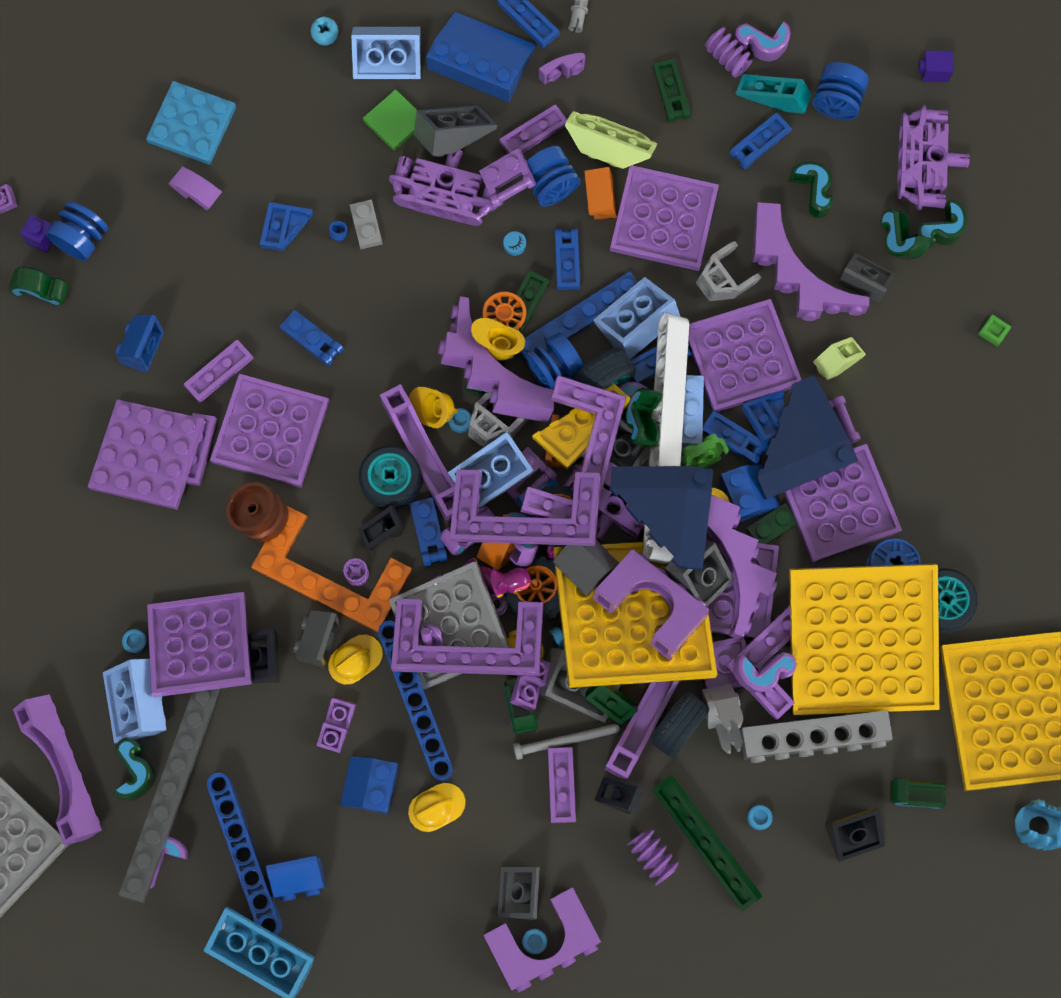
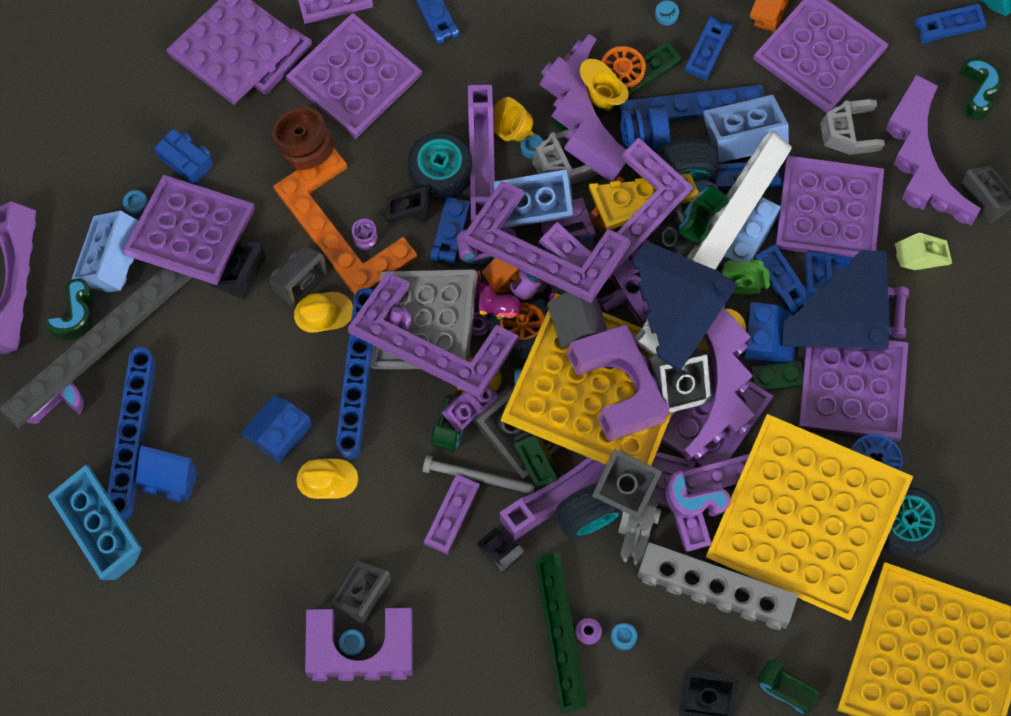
camera: 30 degrees right, 5 degrees down
(157, 578) = (184, 156): none -> blue brick
(336, 724) = (275, 361): medium lavender slope -> none
(653, 856) = (502, 618): medium lavender piece -> none
(704, 690) = (626, 483): none -> dark grey slope
(721, 829) = (588, 639): none -> medium lavender plate

